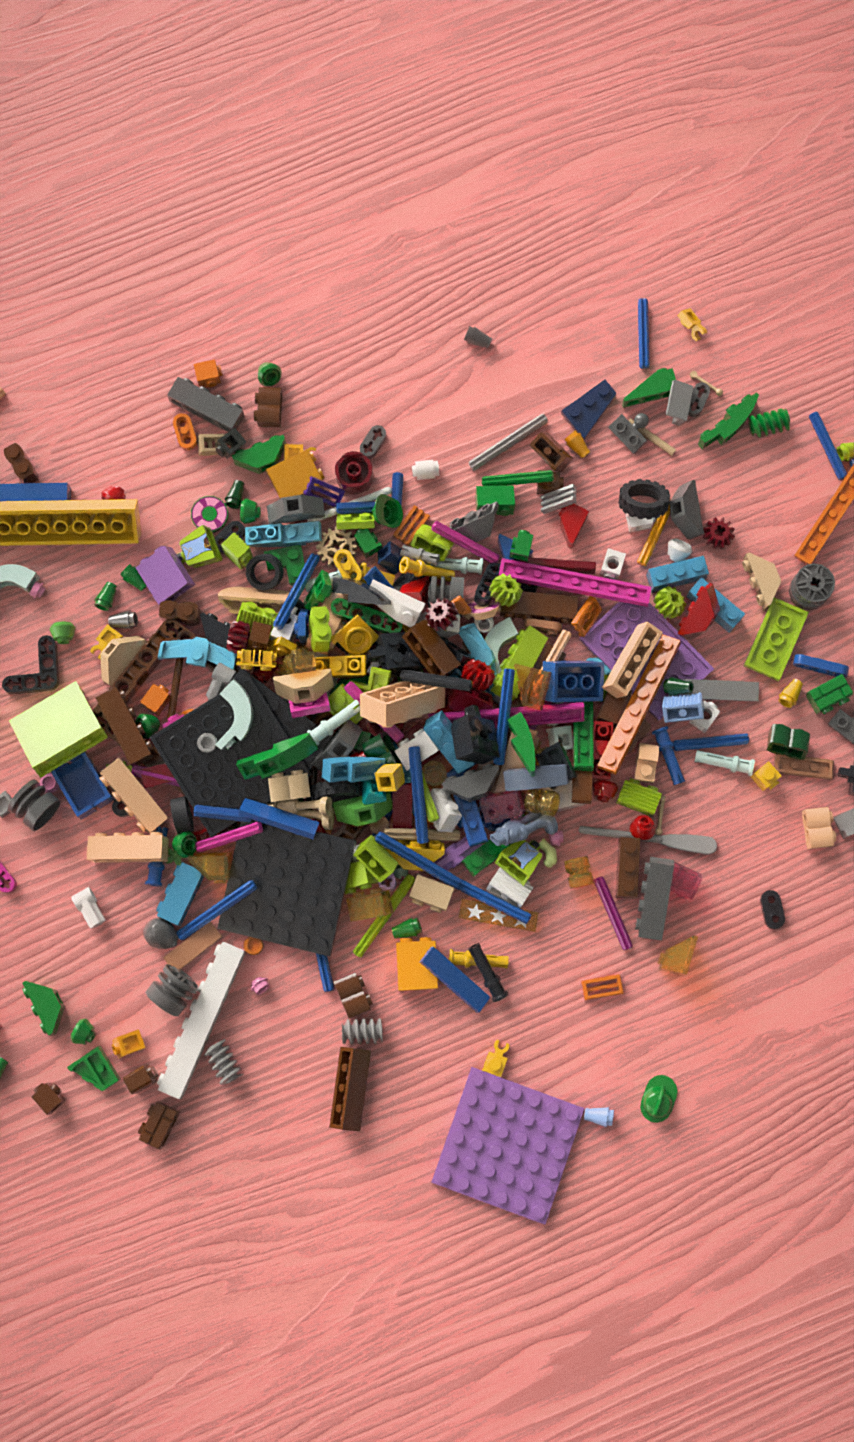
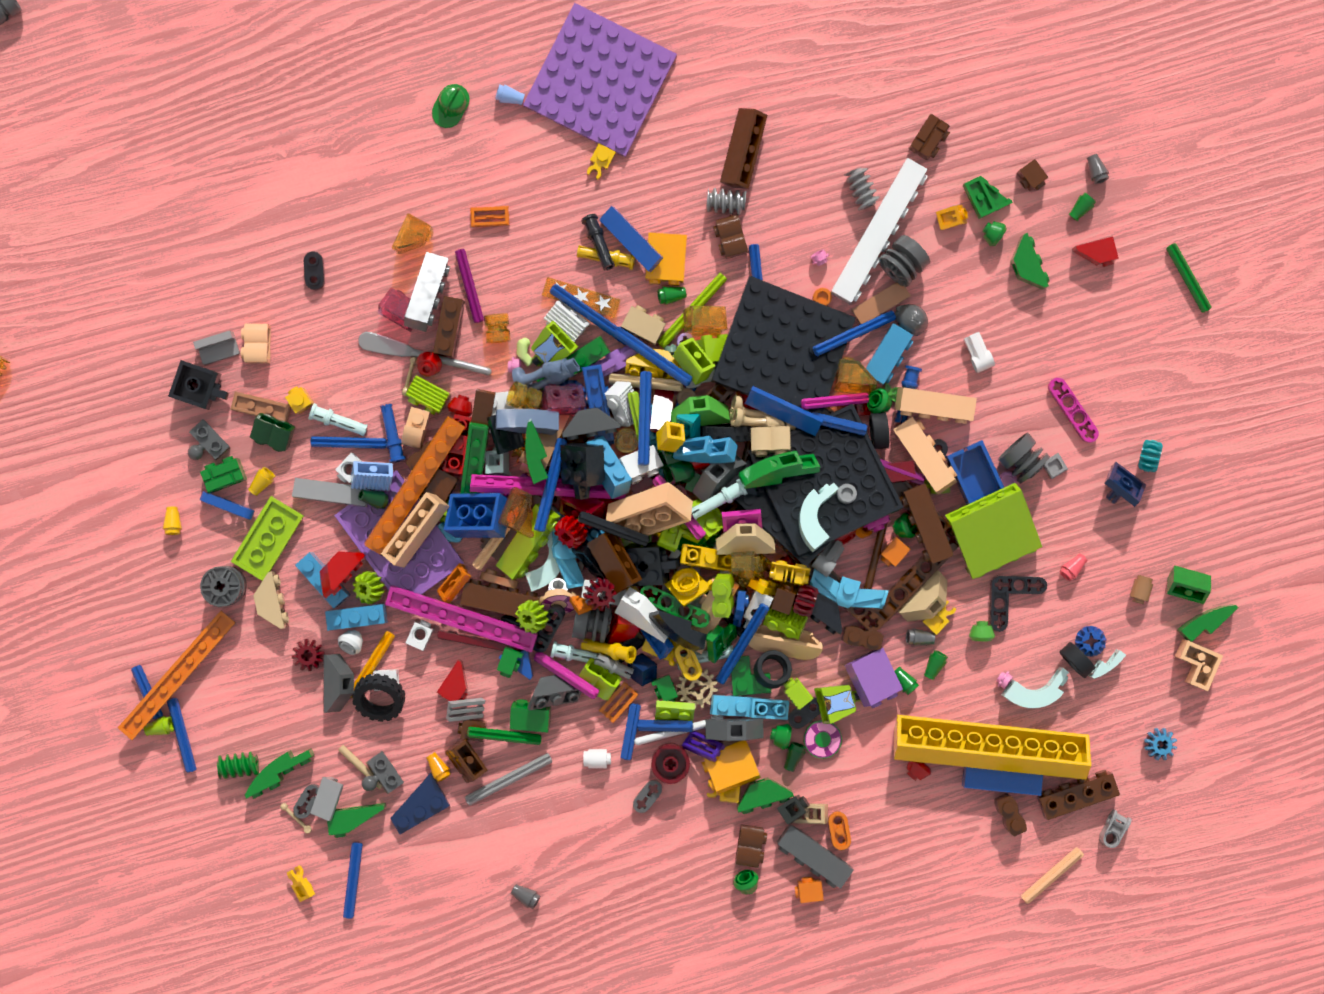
camera: 175 degrees left, 10 degrees up
(140, 1078) = (942, 181): reddish brown brick -> none
(387, 511) = (640, 715): green piece -> none

